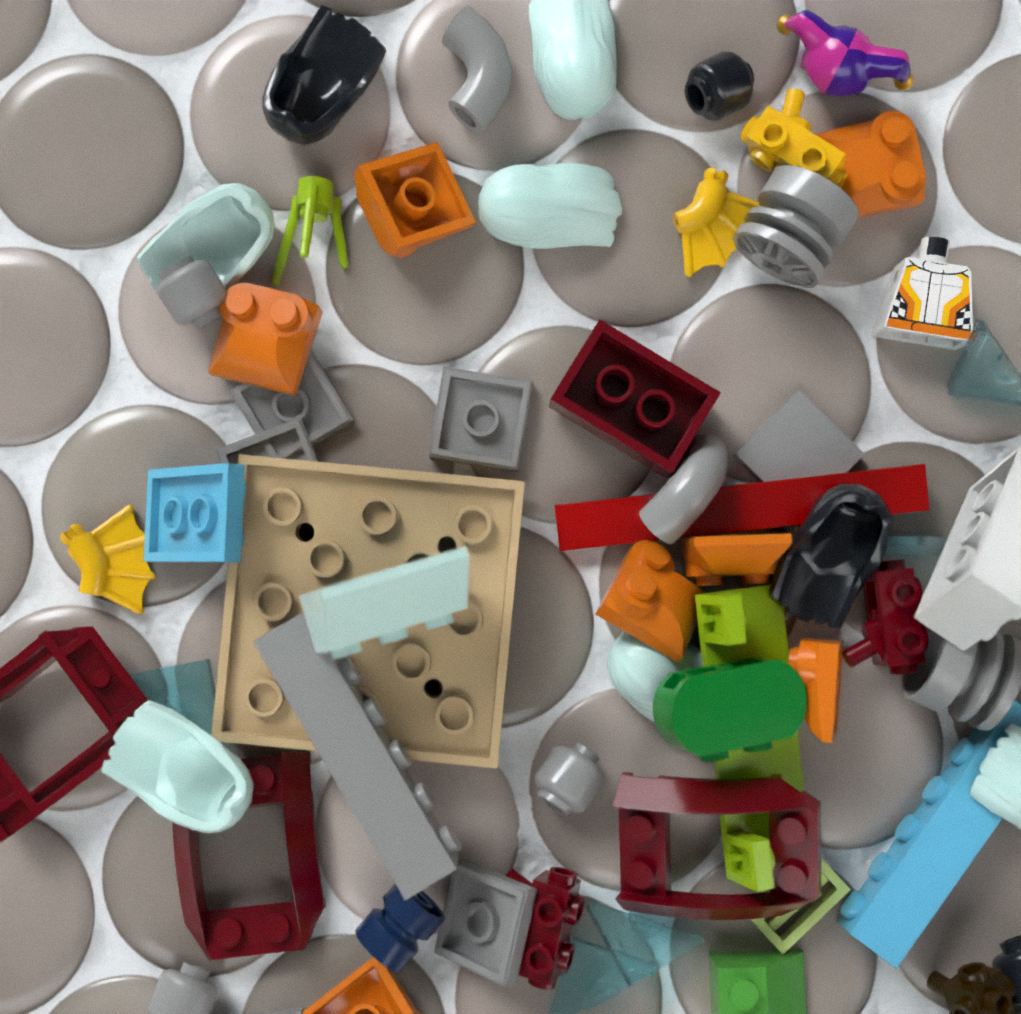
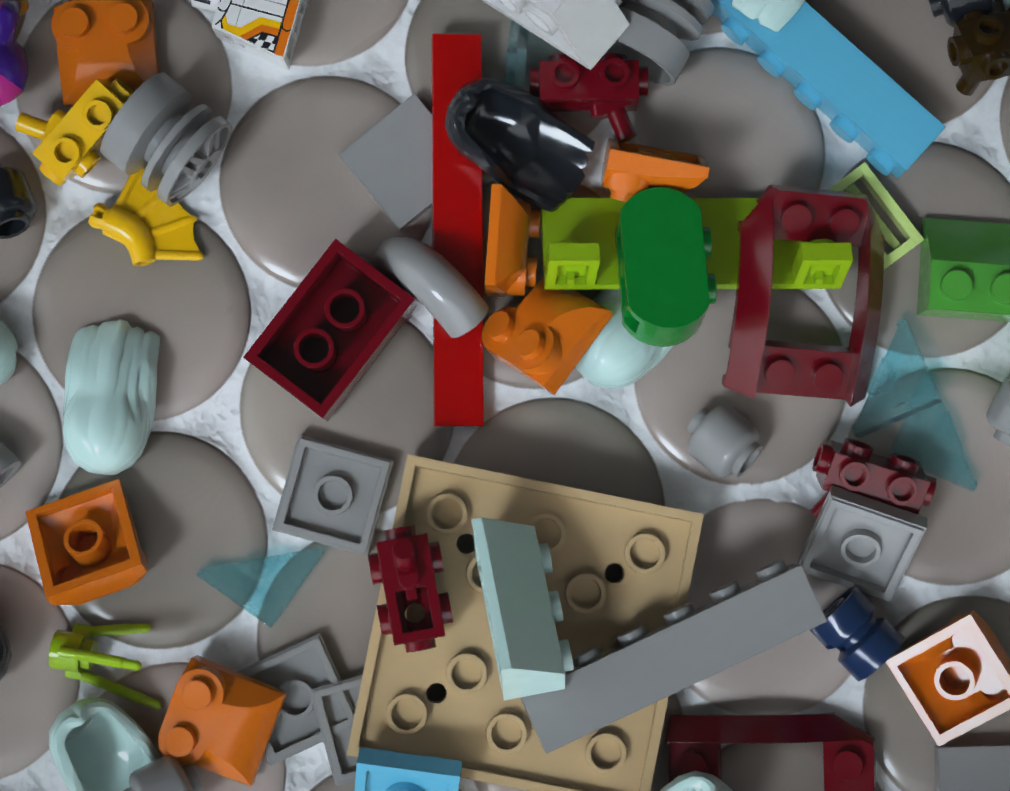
camera: 85 degrees left, 0 degrees up
(393, 365) = (263, 584): none -> clear light blue tile
(413, 491) = (407, 569): none -> dark red brick

